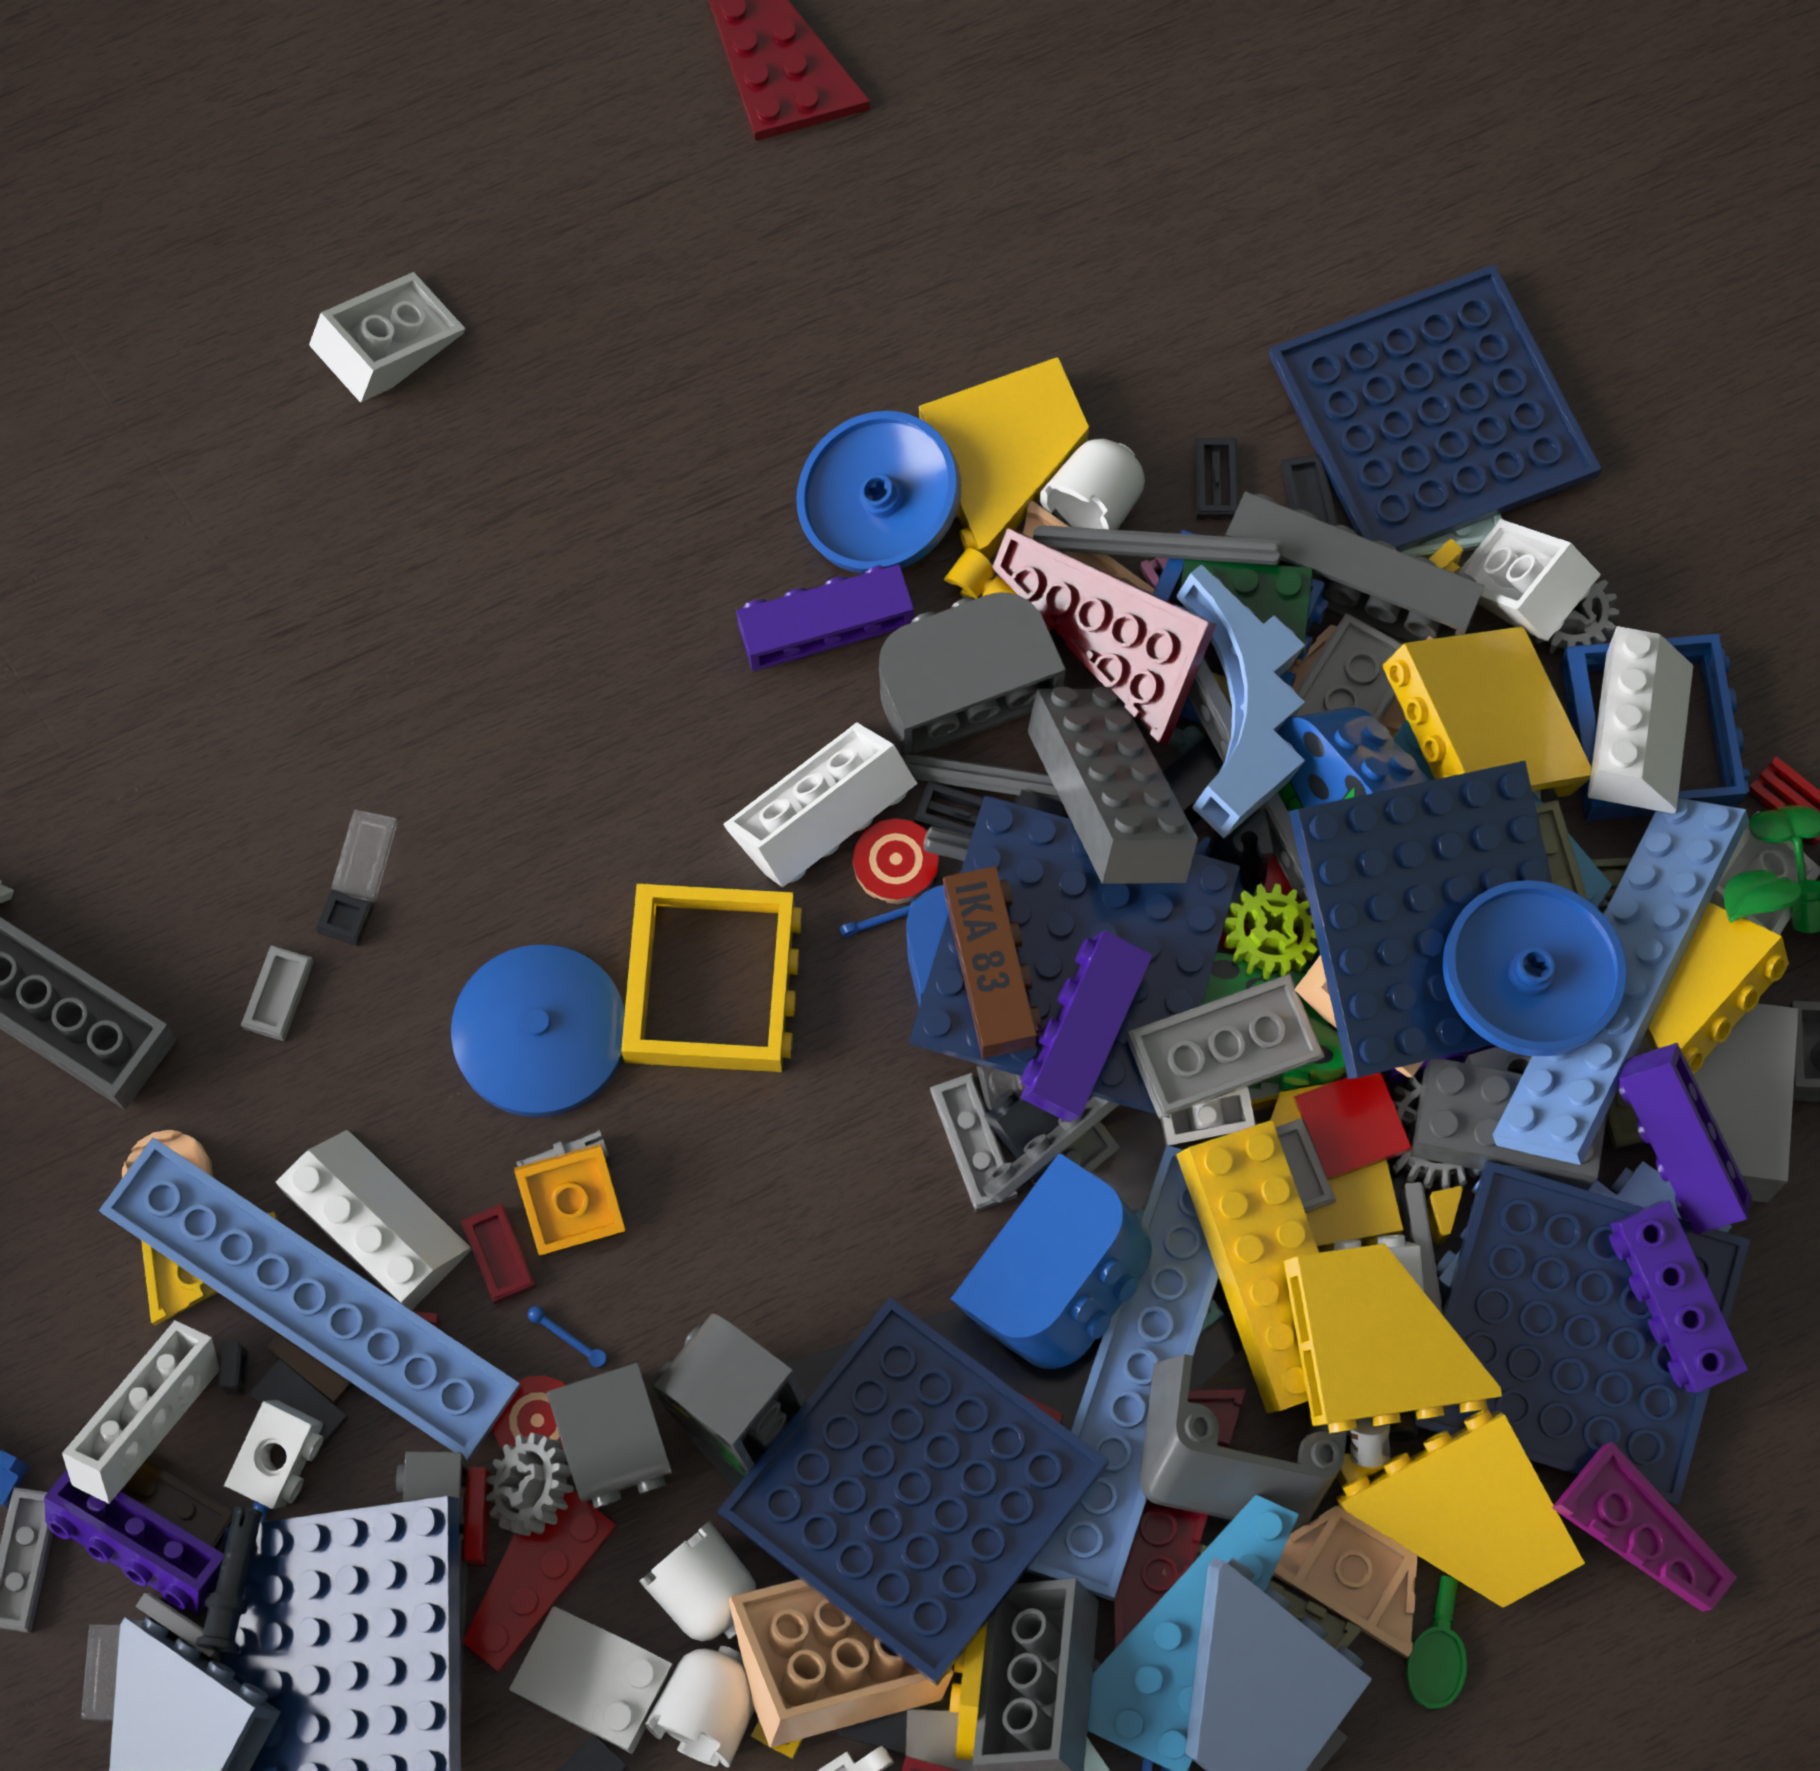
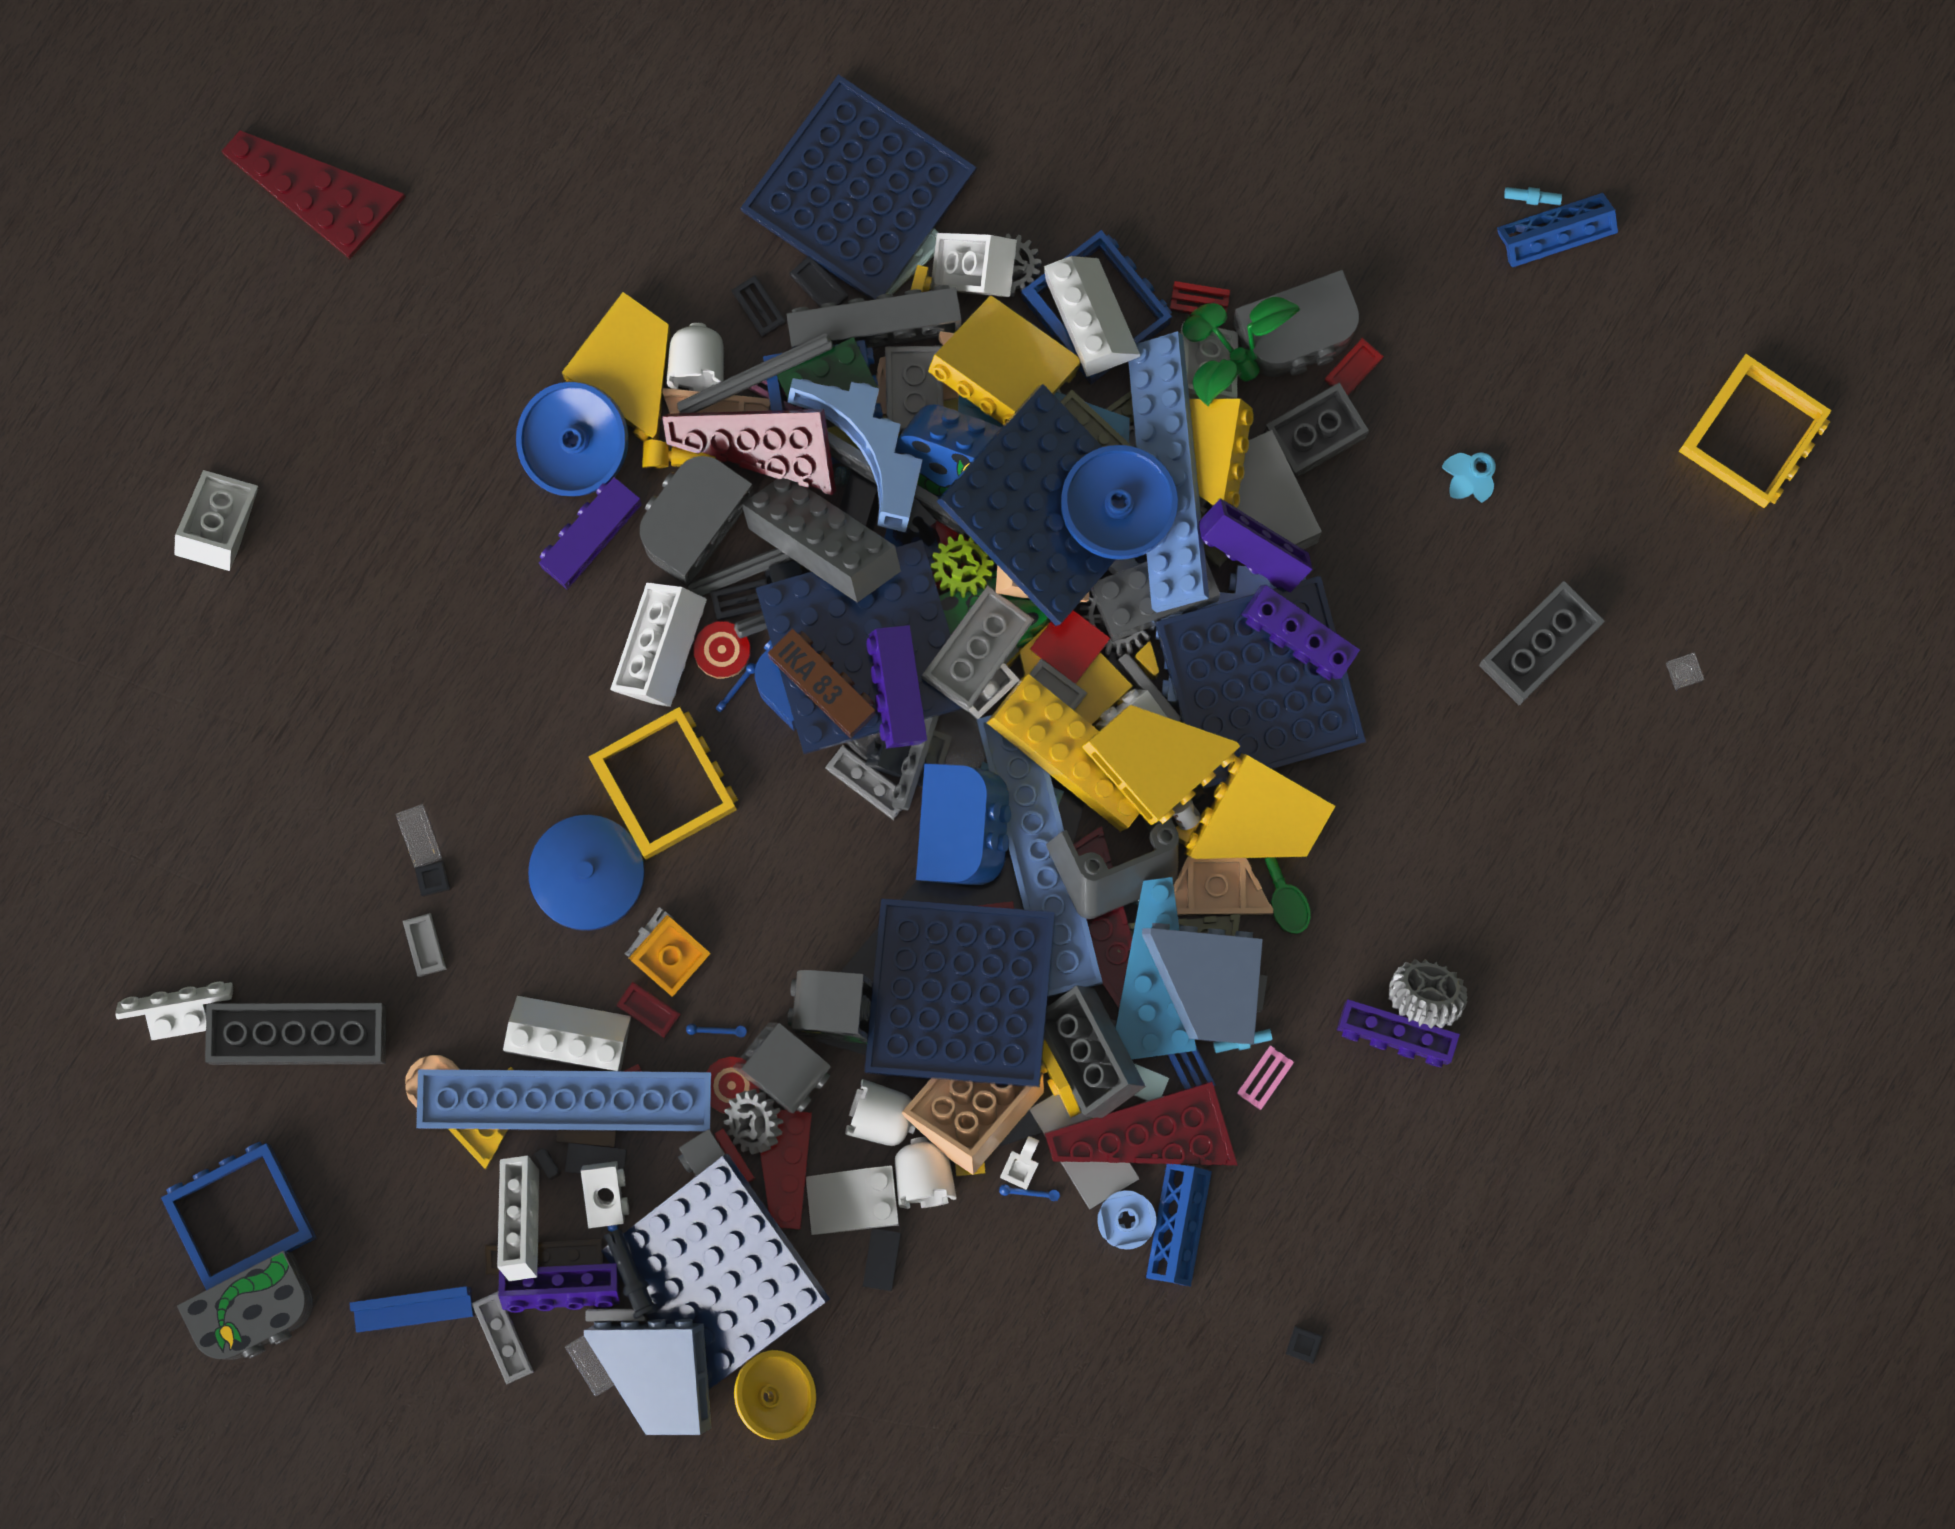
camera: 35 degrees left, 10 degrees up
(1636, 1521) = (1350, 766): magenta wing -> none

